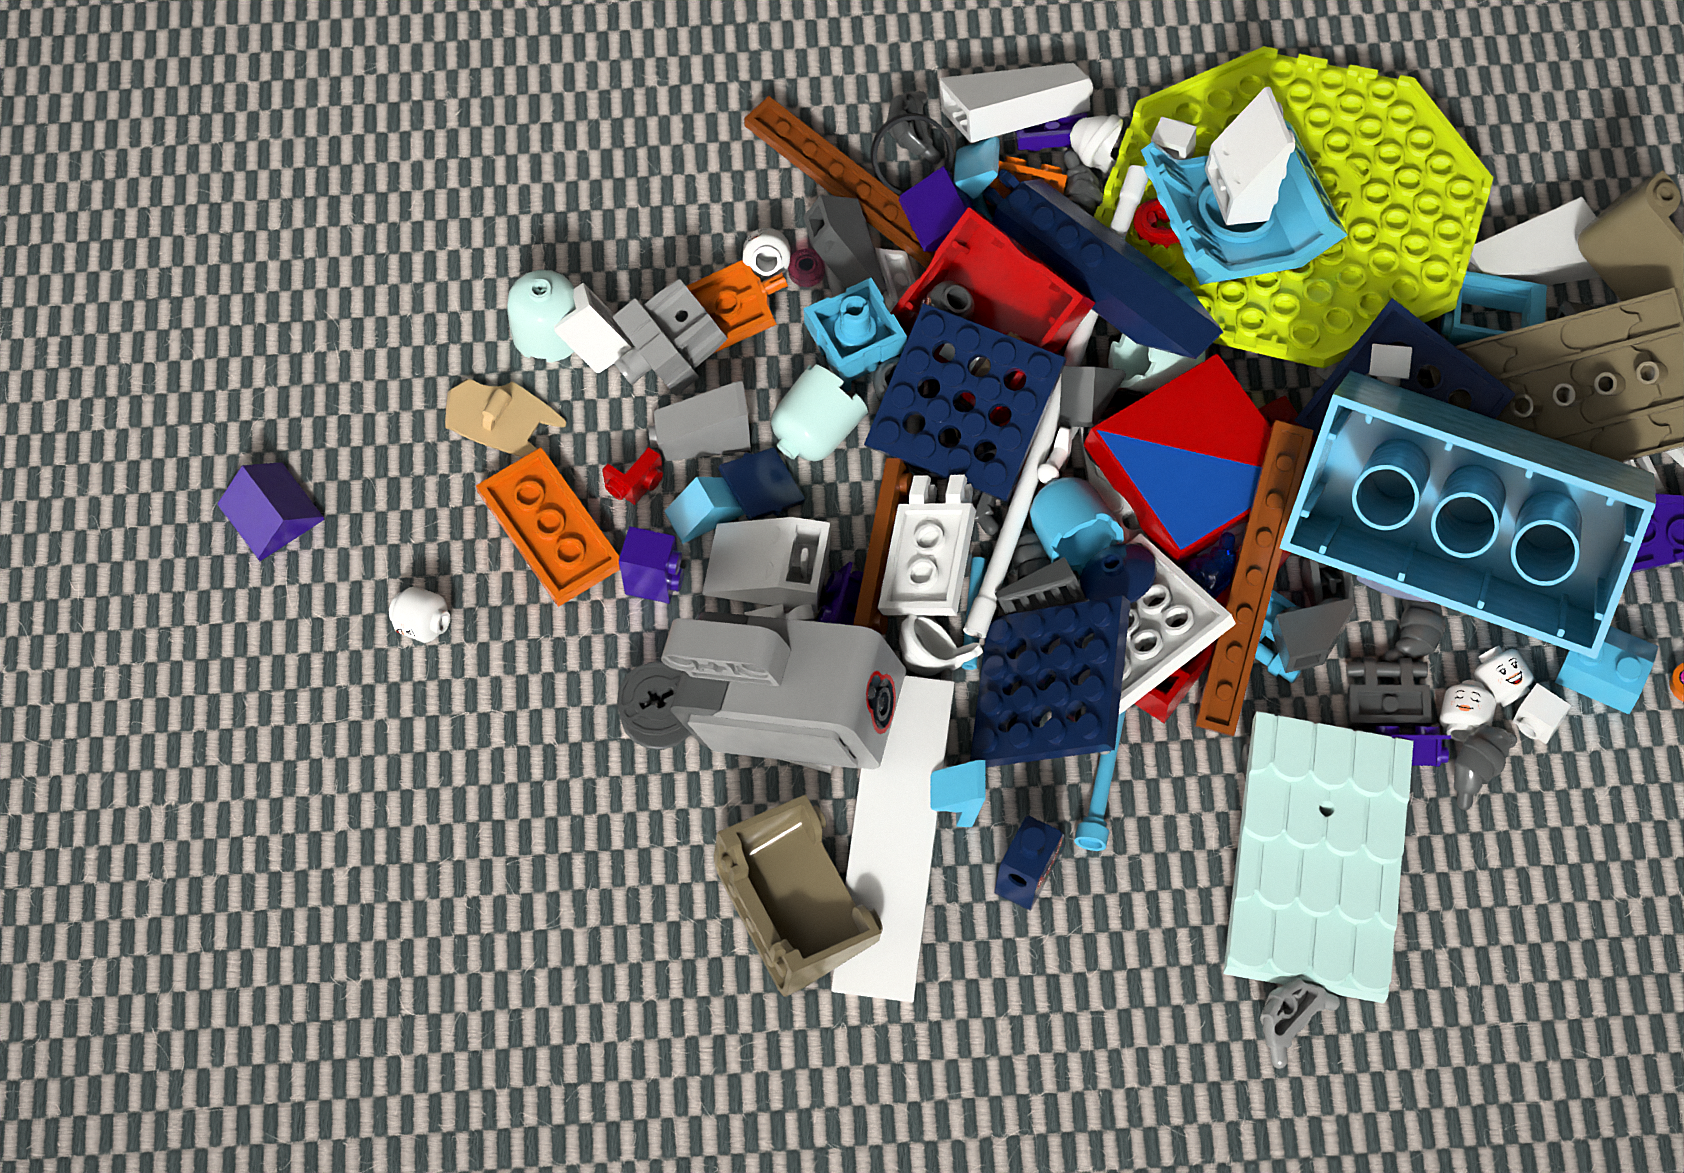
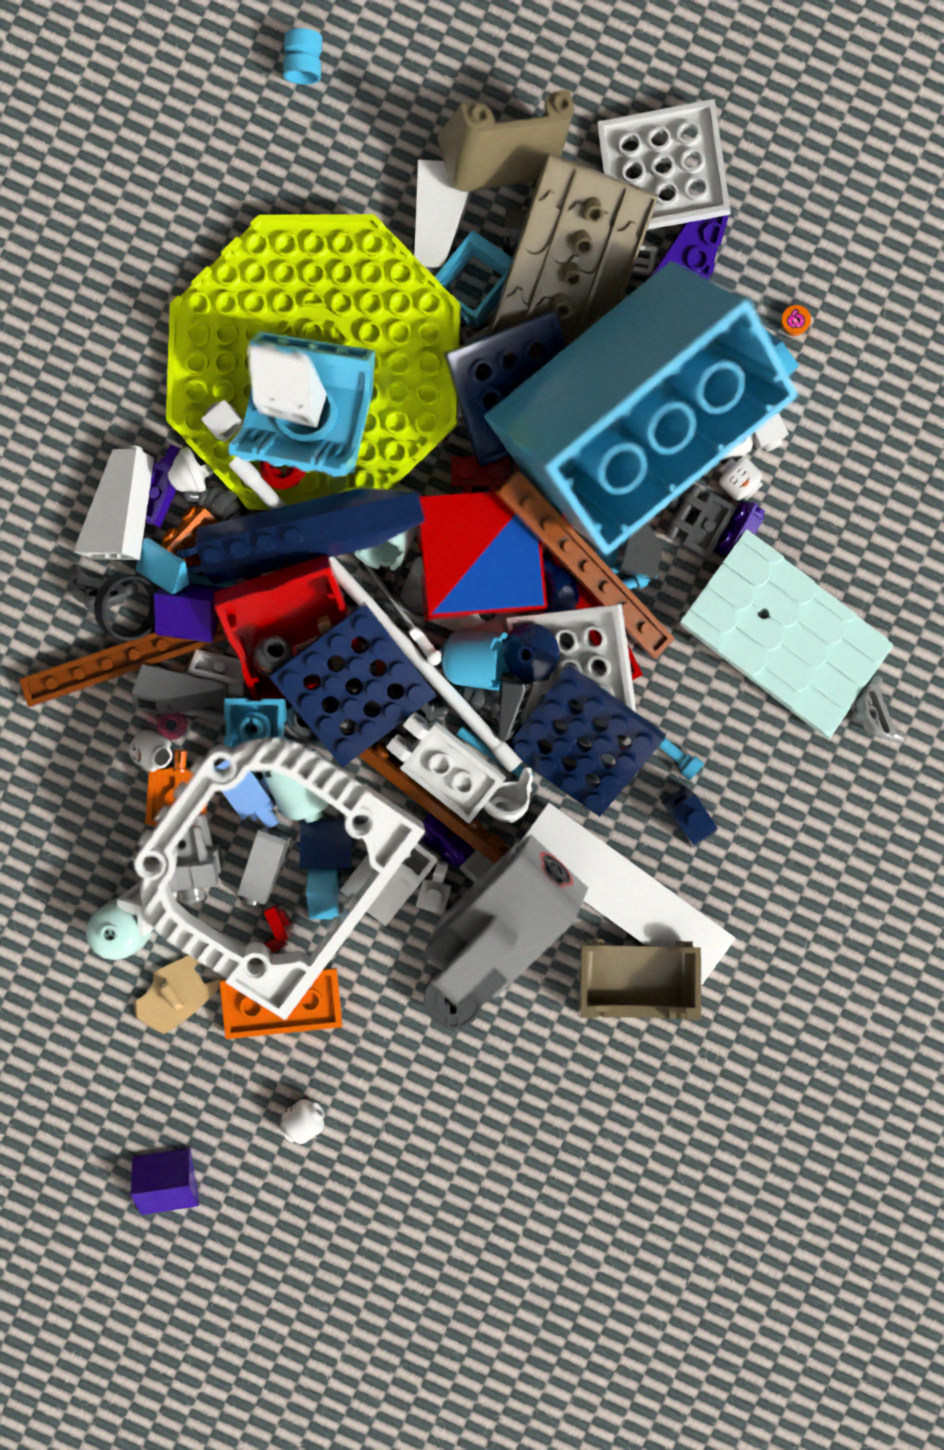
camera: 65 degrees left, 25 degrees up
(650, 565) = (354, 955): dark purple brick -> none
(777, 366) = (252, 798): none -> light blue hinge
(813, 510) = (281, 977): none -> white arch
(959, 791) = (625, 842): medium azure slope -> none
(1087, 394) = (388, 595): dark grey slope -> none
(1390, 363) = (491, 384): white plate -> none
(1480, 760) = (780, 490): dark grey piece -> none
(1608, 44) = (302, 59): none -> medium azure wheel

